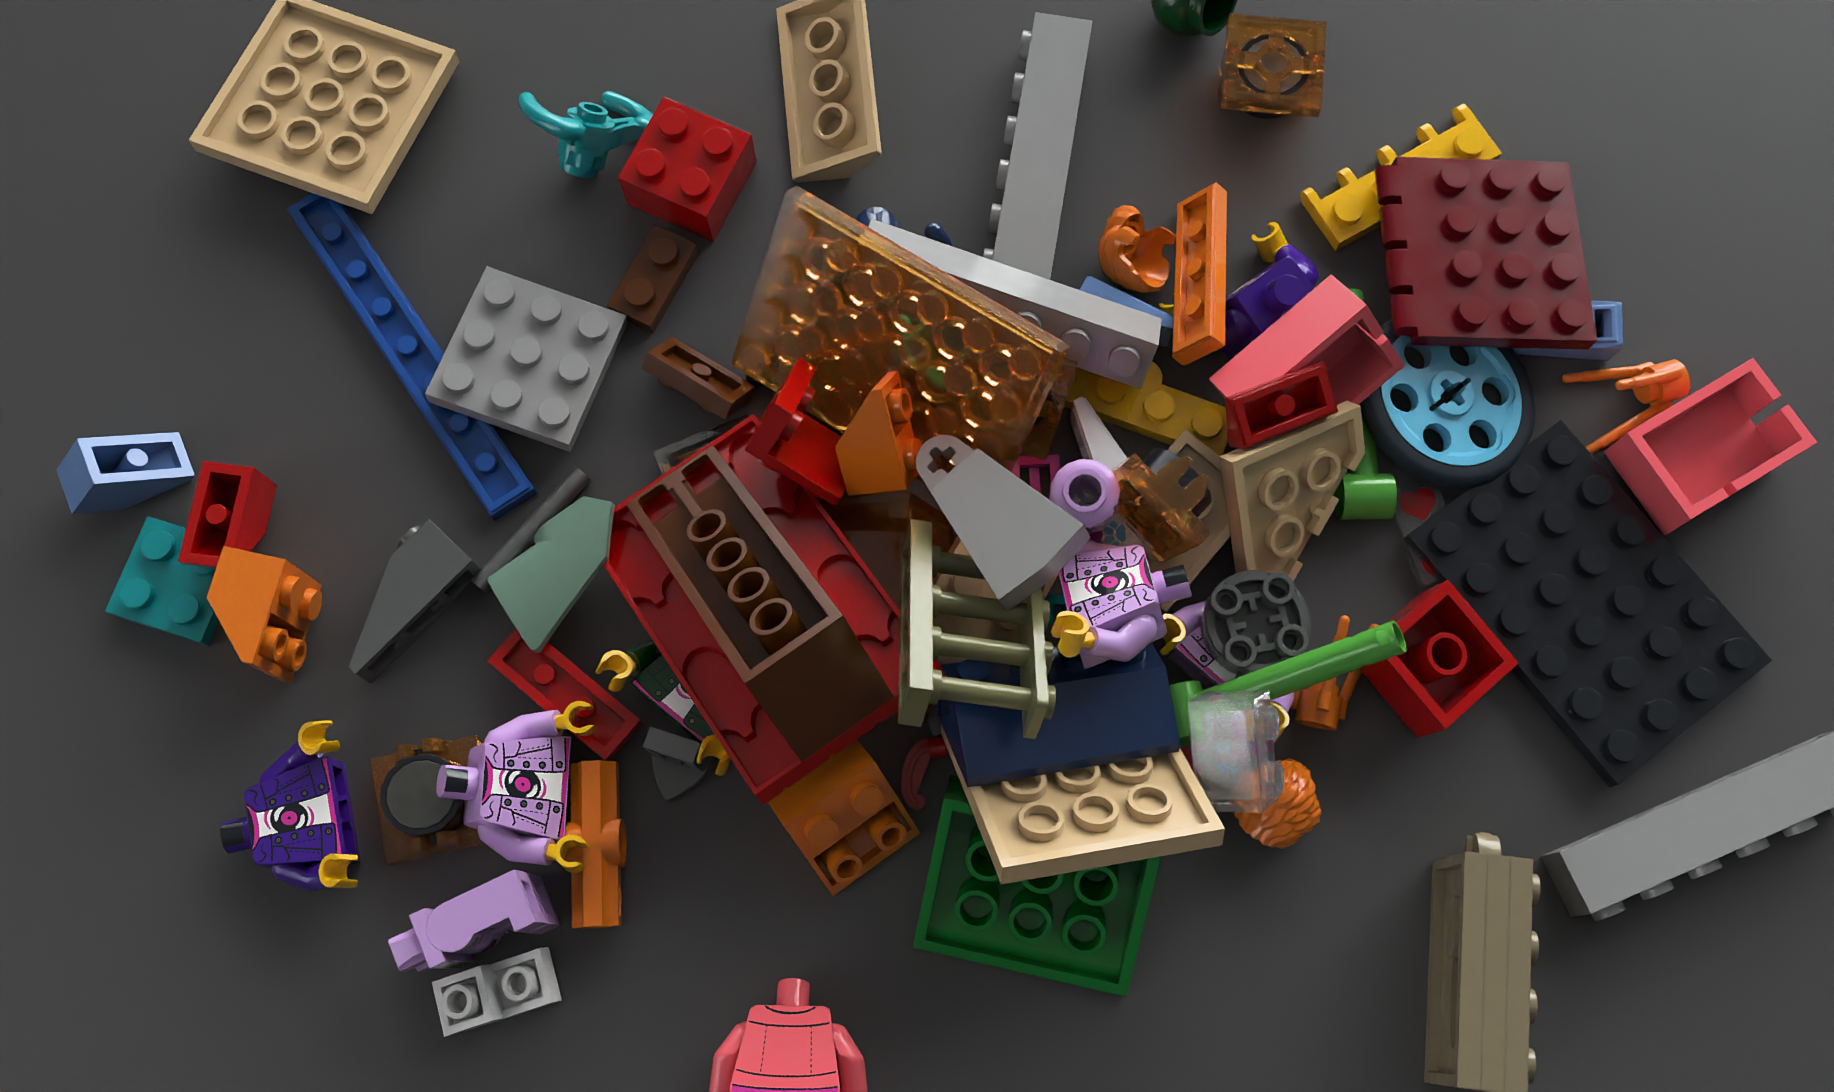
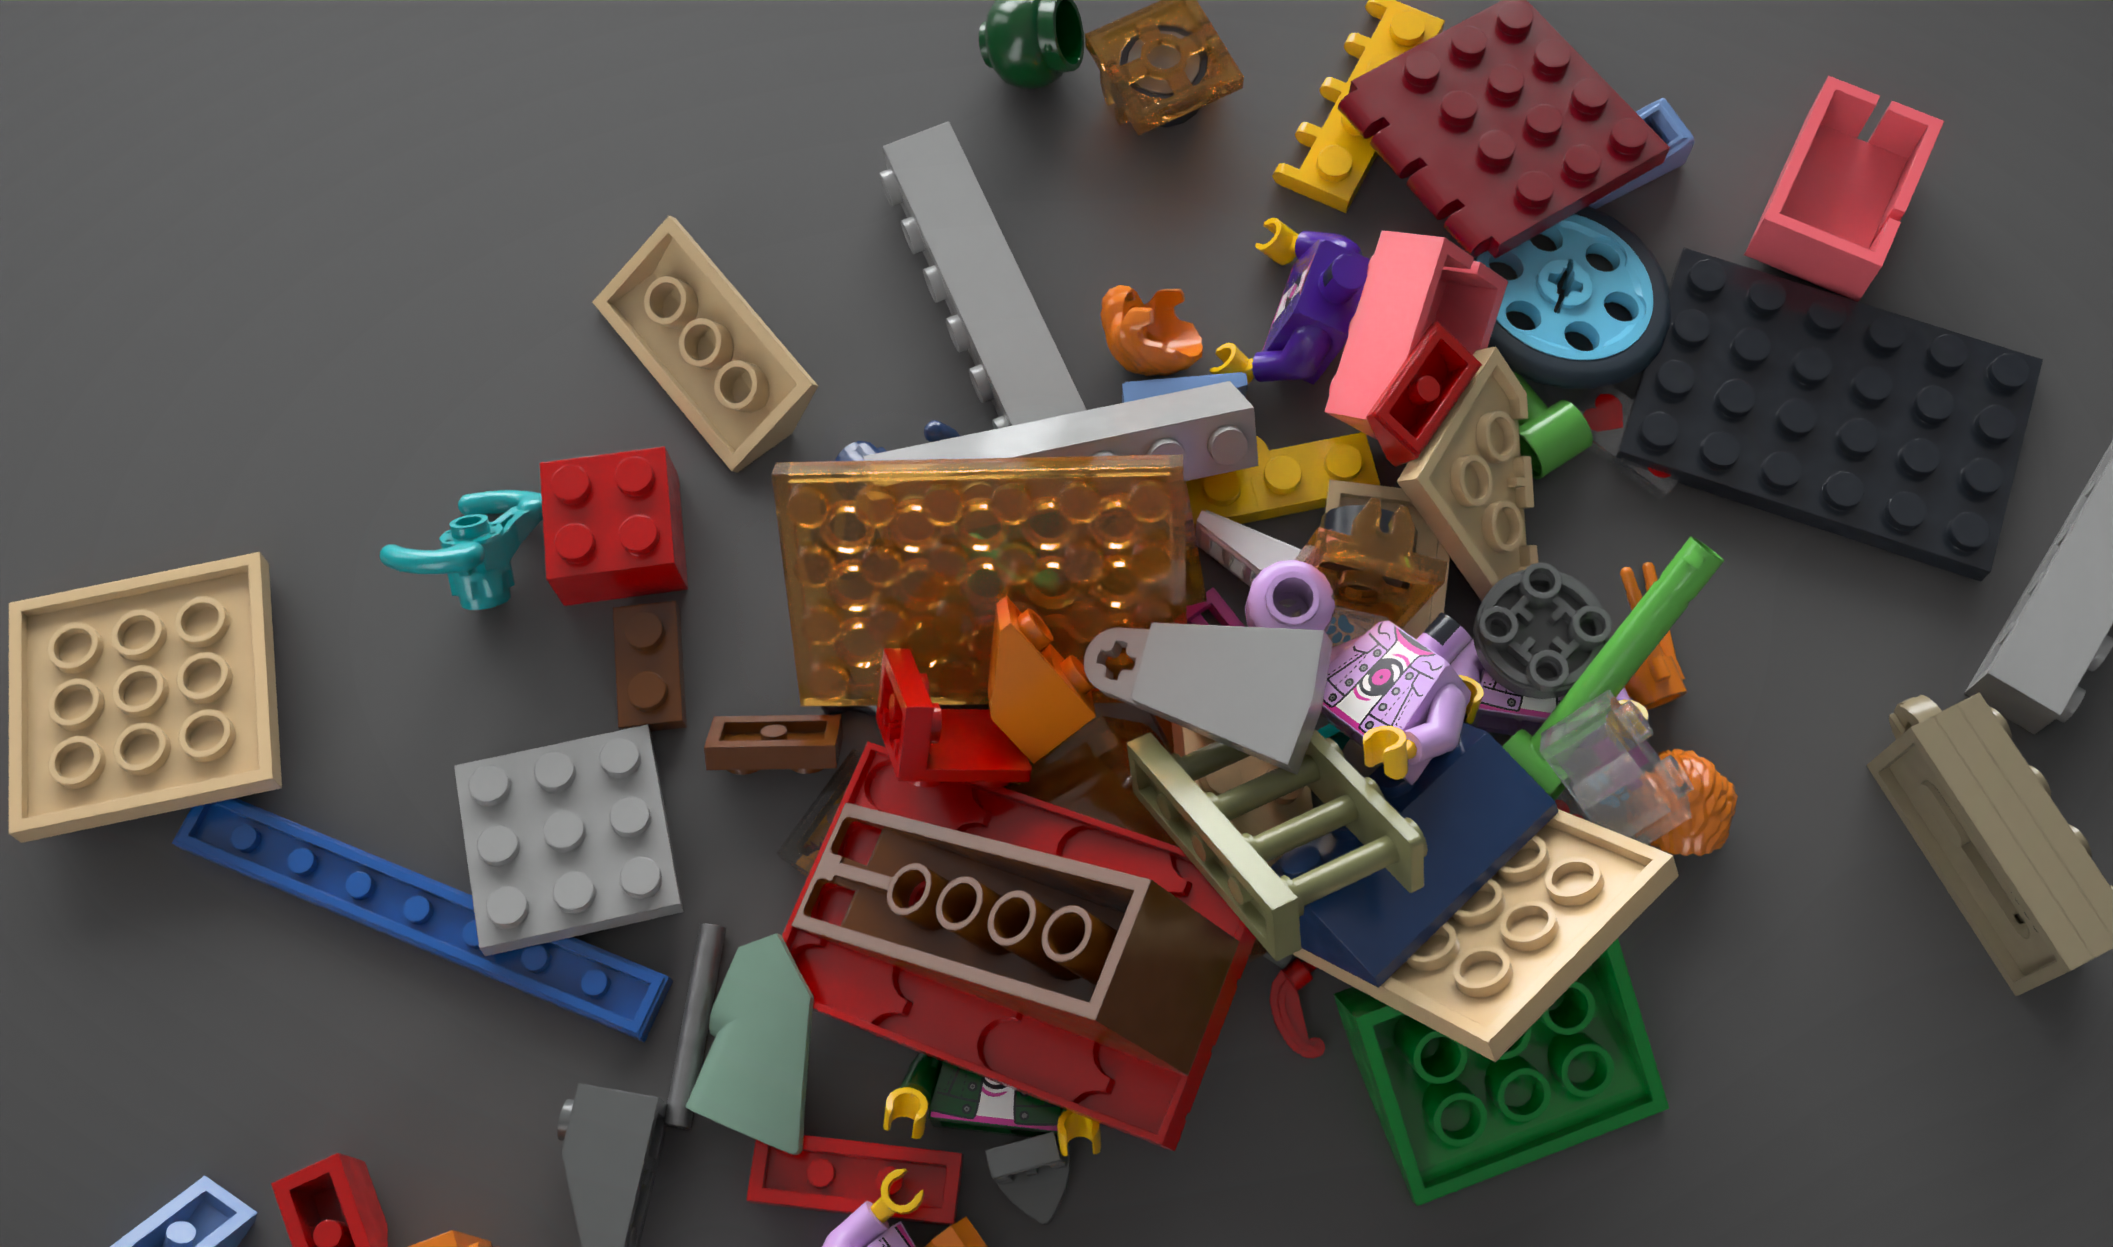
camera: 30 degrees left, 5 degrees down
(844, 817) = (1257, 1115): orange slope -> none
(1200, 275) = (1238, 314): orange tile -> none
(1447, 661) = (1765, 553): red brick -> none
(1651, 384) = (1744, 161): orange plant -> none

